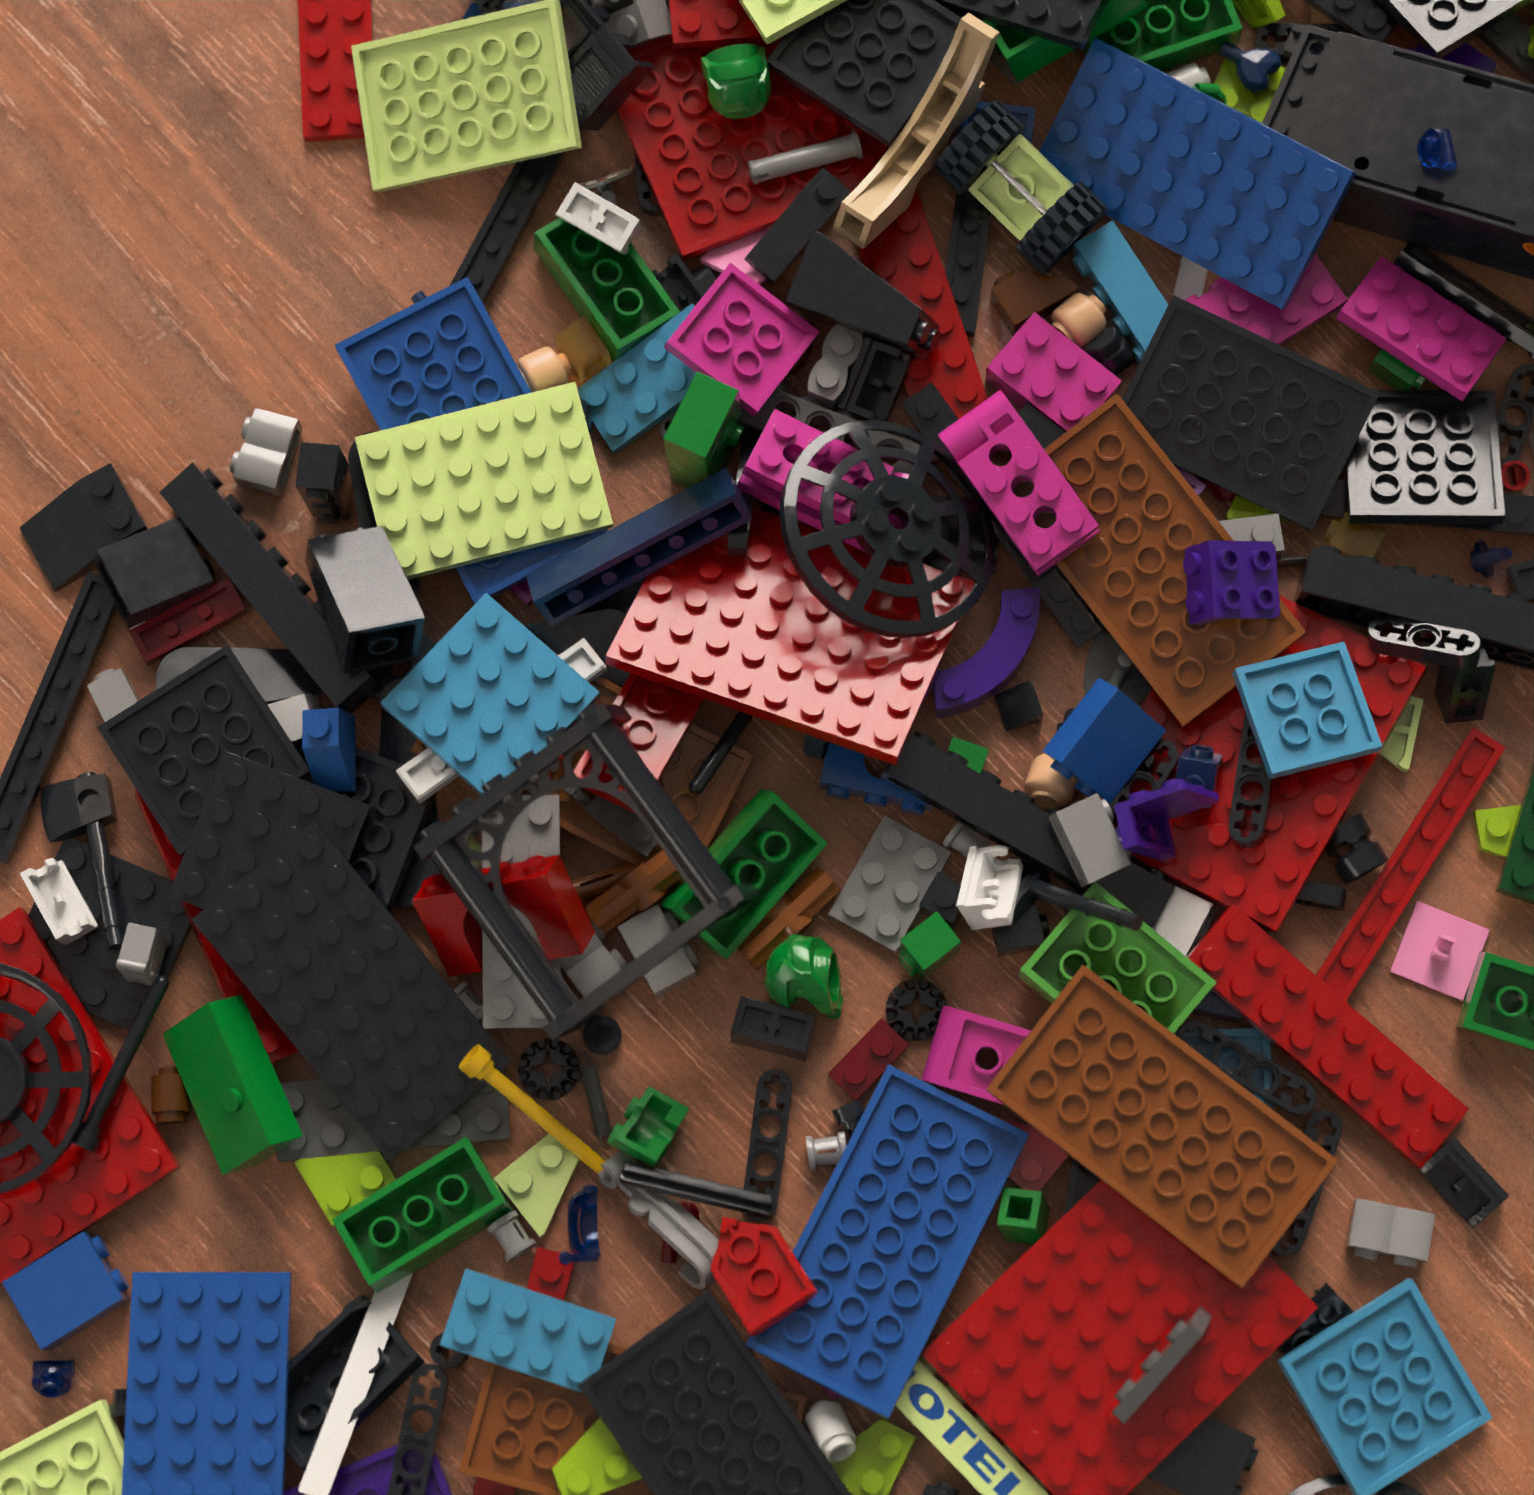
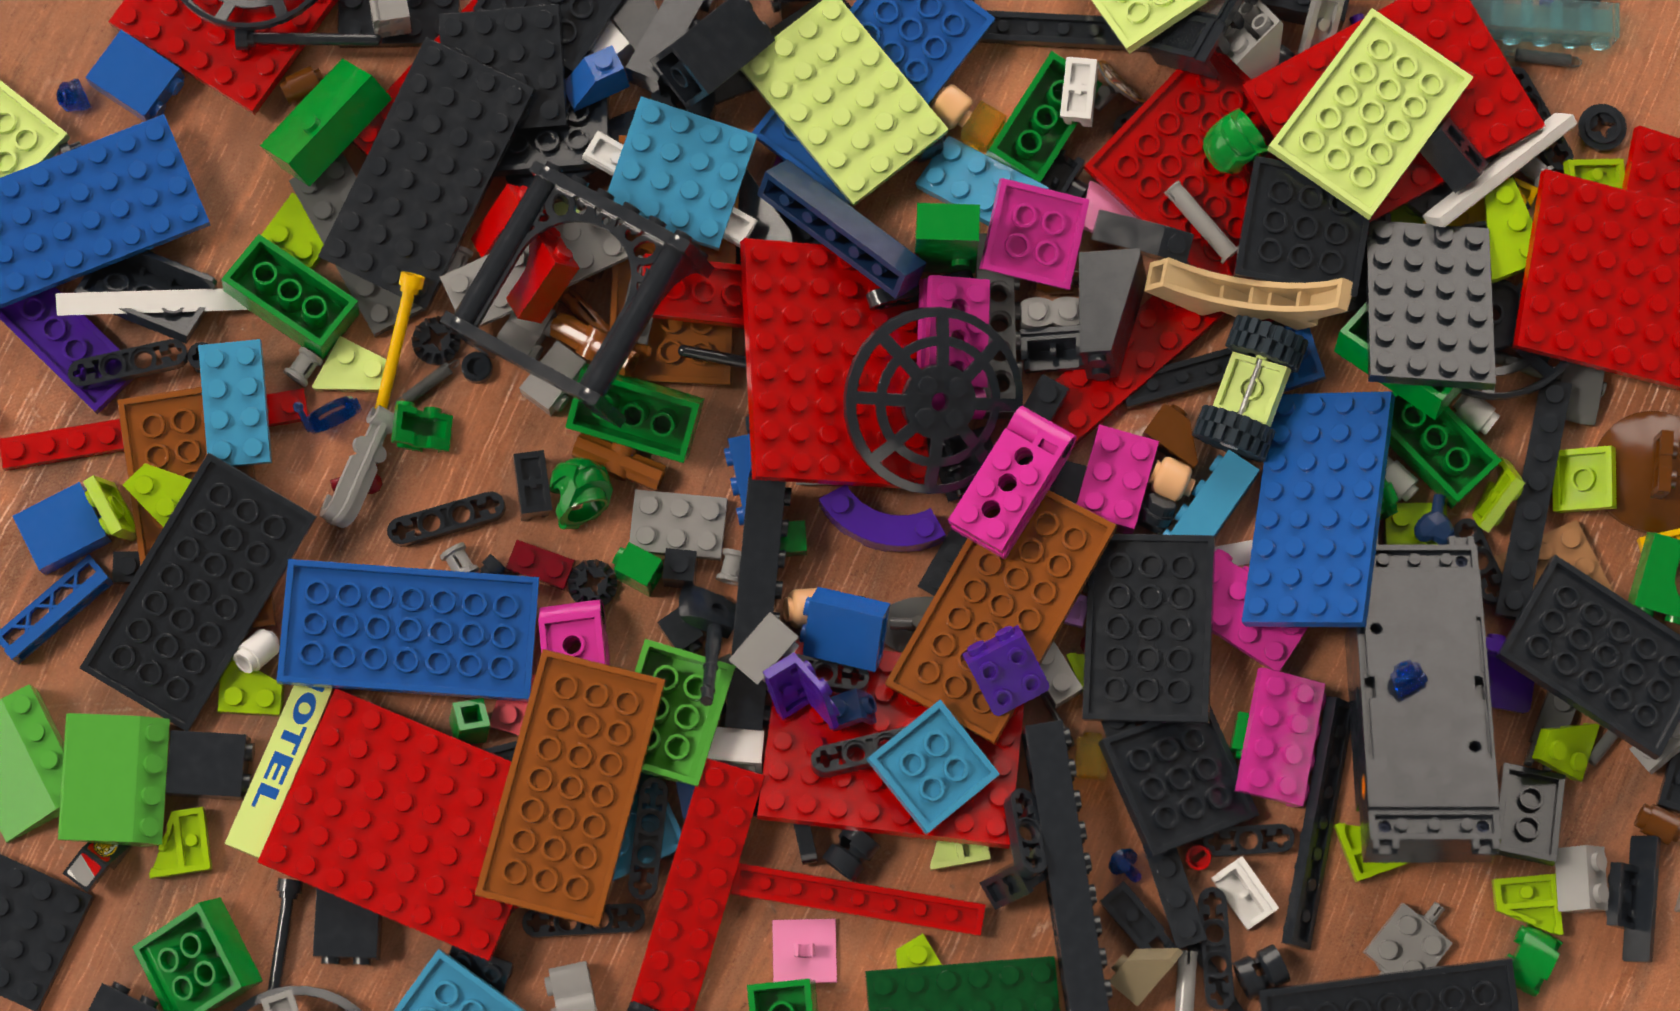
camera: 60 degrees right, 0 degrees up
(696, 1189) = (388, 479): black axle -> none
(759, 1274) = (342, 547): red tile -> none
(989, 887) = (699, 591): white hinge -> none
(1019, 706) = (853, 562): black slope -> none
(1159, 1365) = (391, 855): dark grey wing -> none

